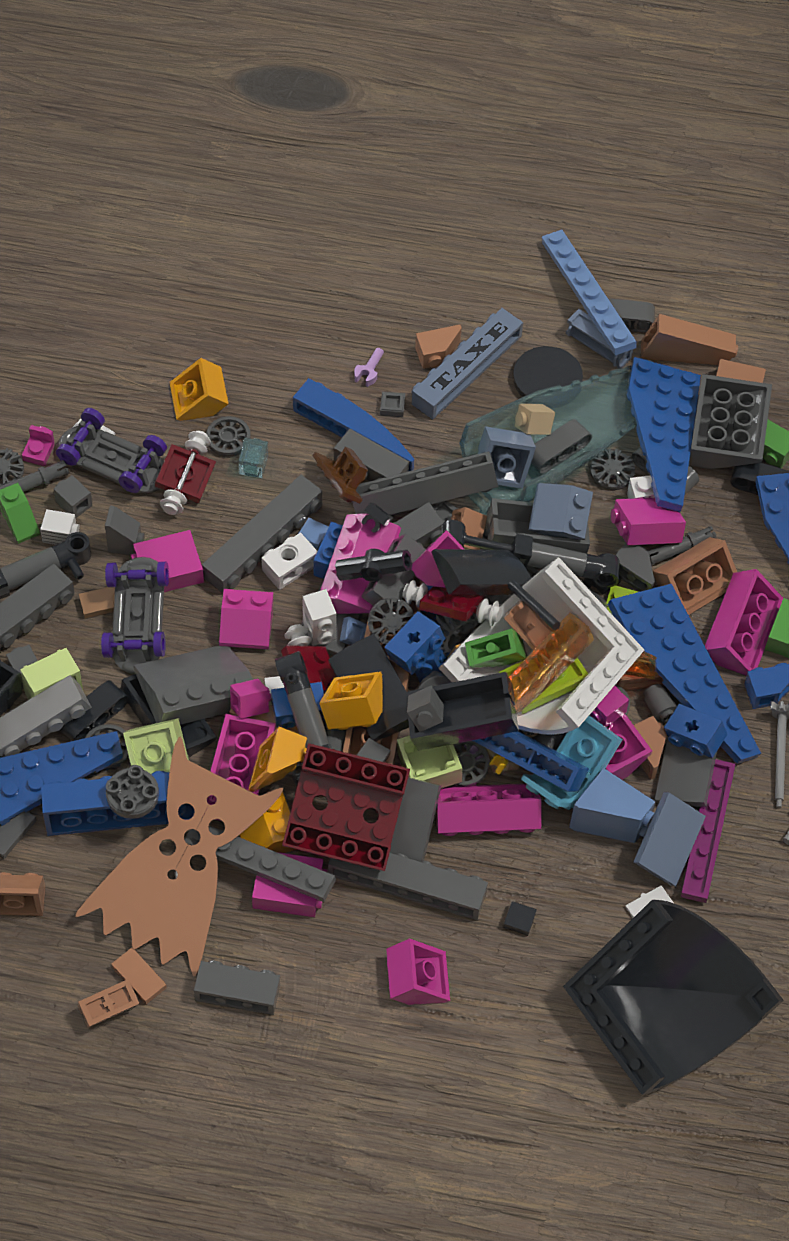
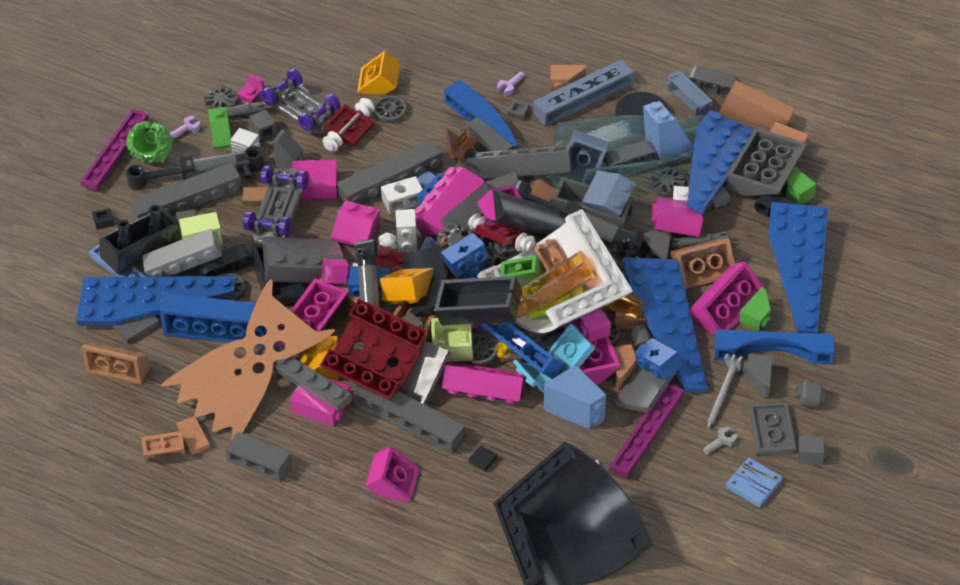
camera: 20 degrees right, 10 degrees down
(132, 792) = (226, 309): dark grey tile -> none
(153, 745) = (250, 285): yellowish green container -> none
(253, 457) = (401, 124): clear light blue brick -> none
(277, 757) = (336, 310): light orange slope -> none
(373, 565) = (451, 197): black piece -> none
(378, 515) = (469, 168): black tile -> none
(425, 708) = (450, 292): dark grey brick -> none
(534, 419) = (614, 133): tan brick -> none
(536, 607) = (557, 242): black bar -> none
(589, 292) = (691, 61): medium blue plate -> none
(593, 404) = (664, 131): none -> medium blue slope
(669, 839) = (611, 425): sand blue tile -> none

